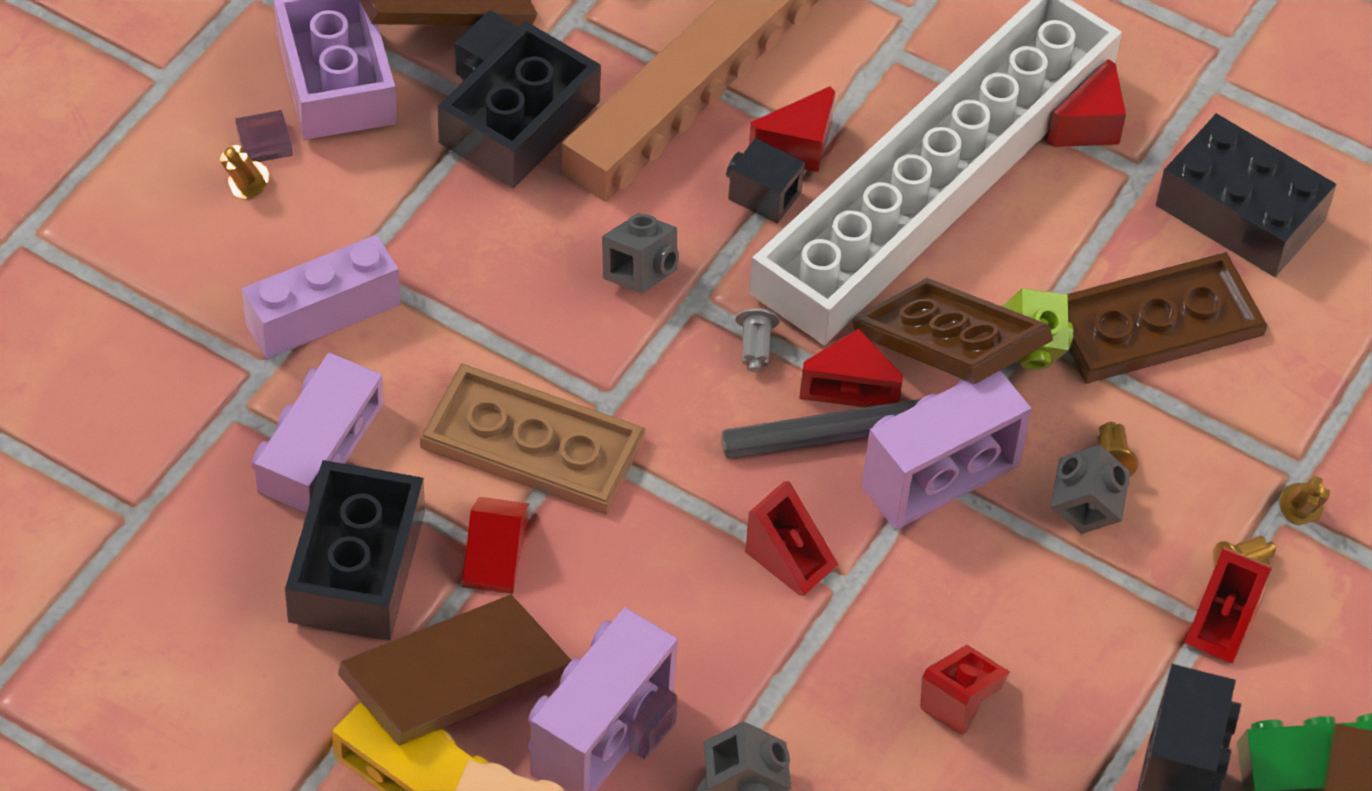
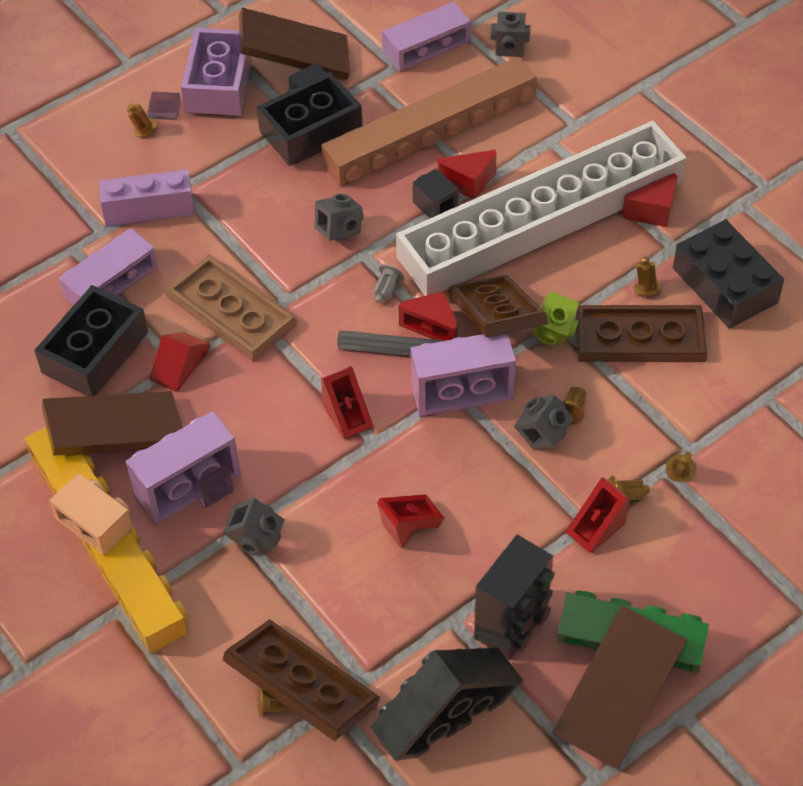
camera: 25 degrees right, 0 degrees up
(1134, 237) = (647, 281): none -> pearl gold piece

